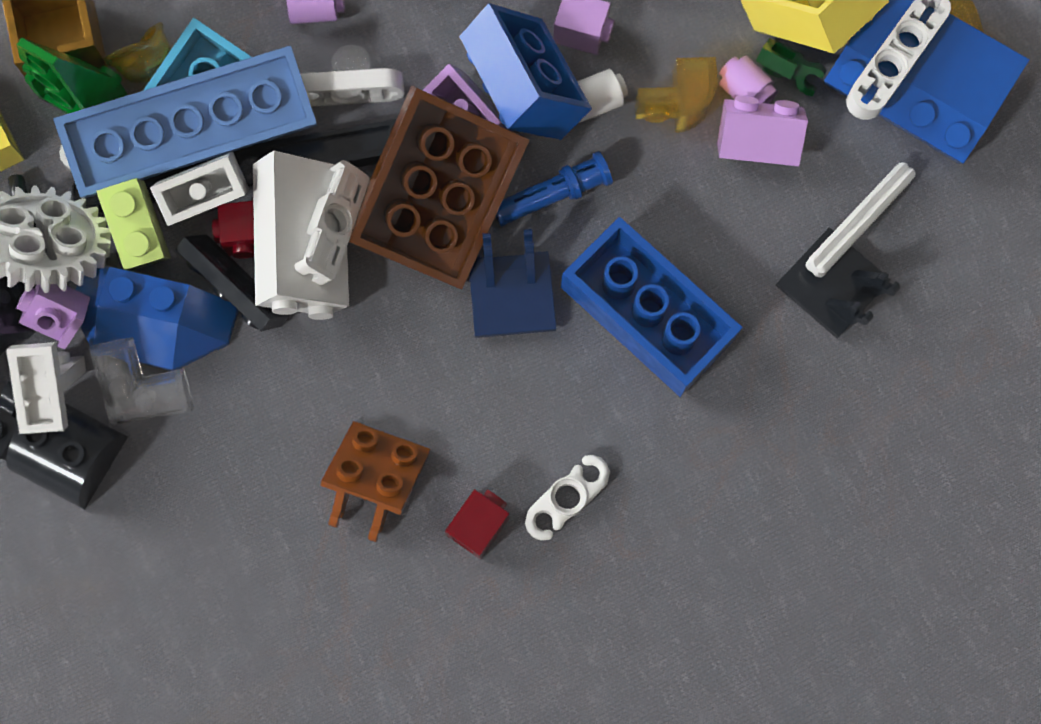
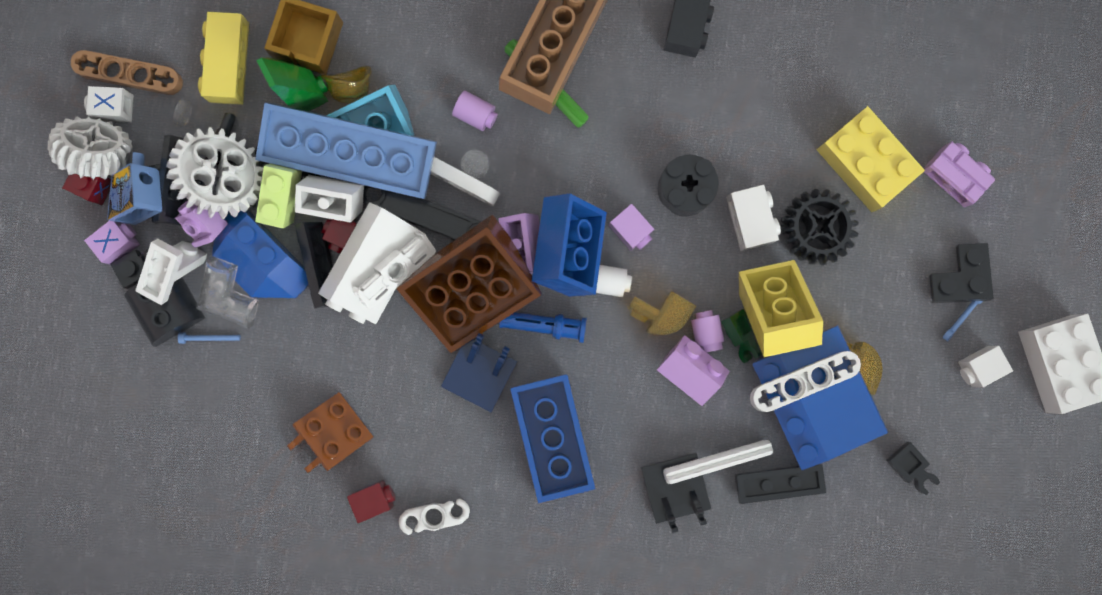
camera: 30 degrees right, 10 degrees up
(113, 475) = (183, 337): none -> medium blue piece
(948, 202) = (780, 484): none -> black plate

